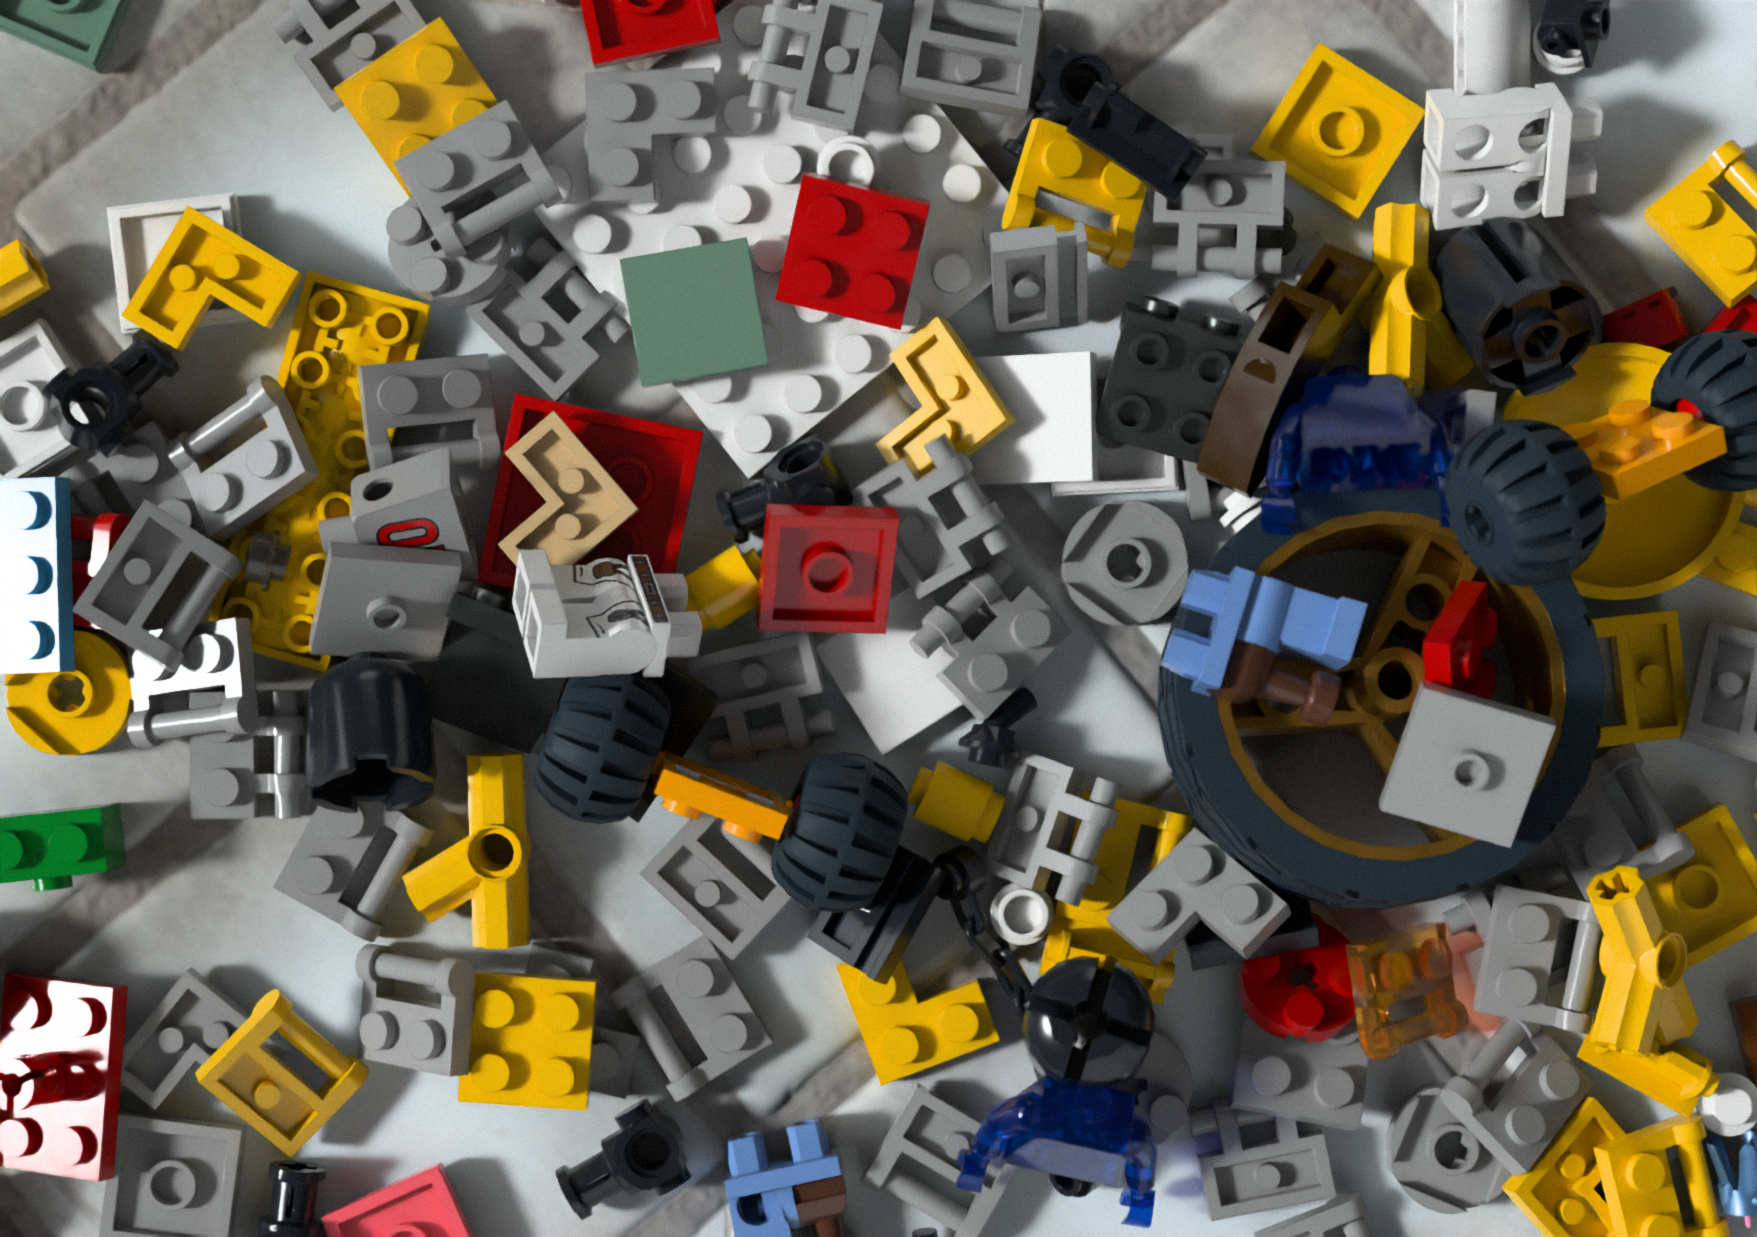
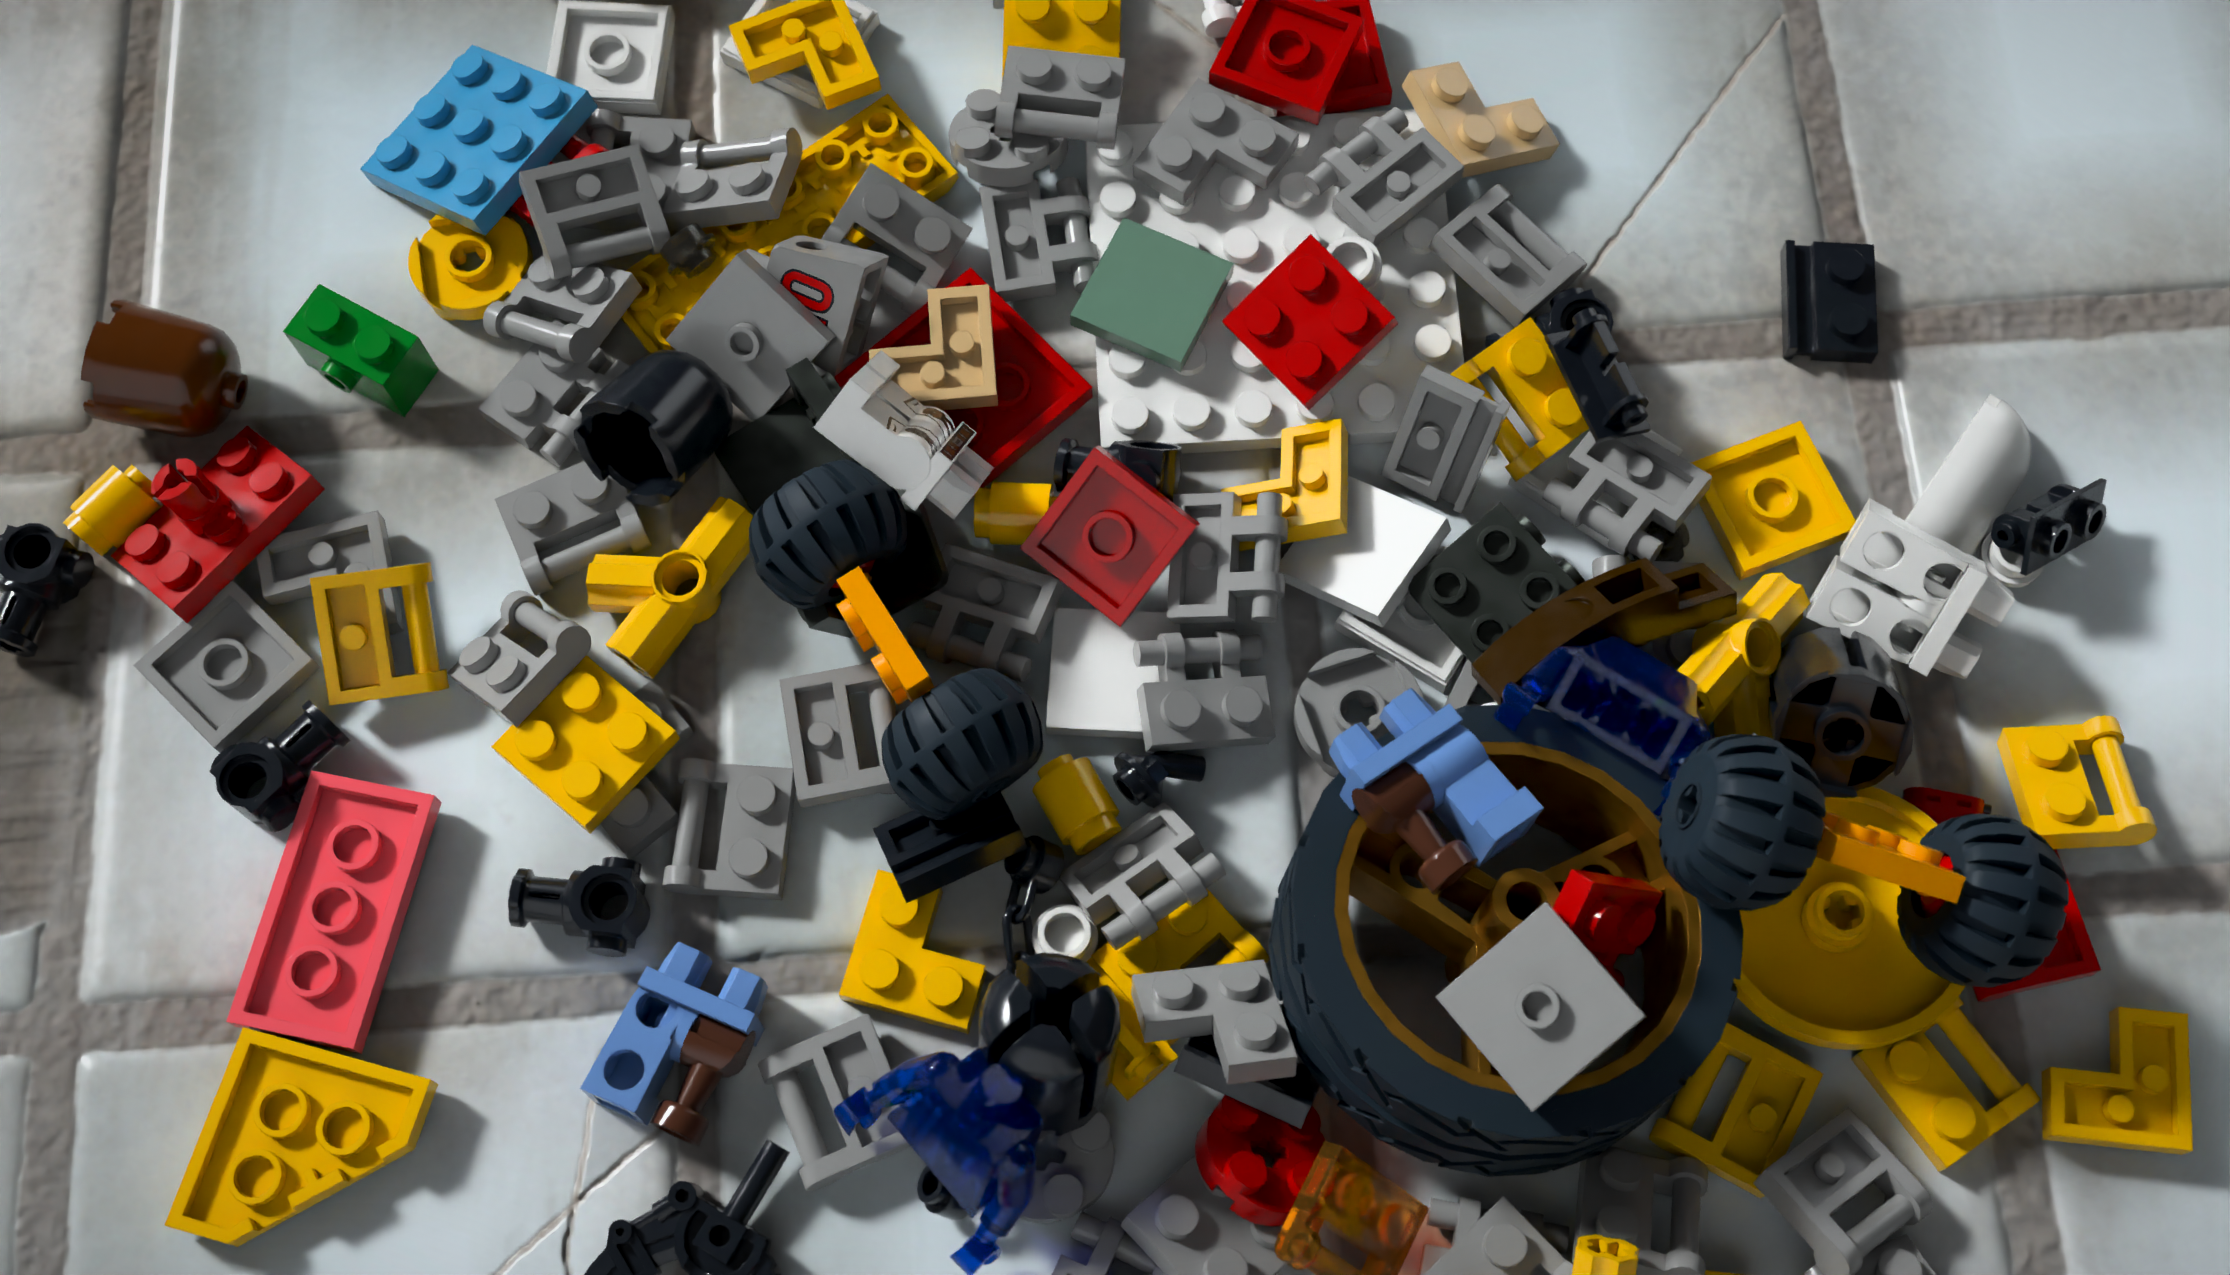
camera: 35 degrees right, 20 degrees down
(112, 387) = (678, 74): black connector -> none

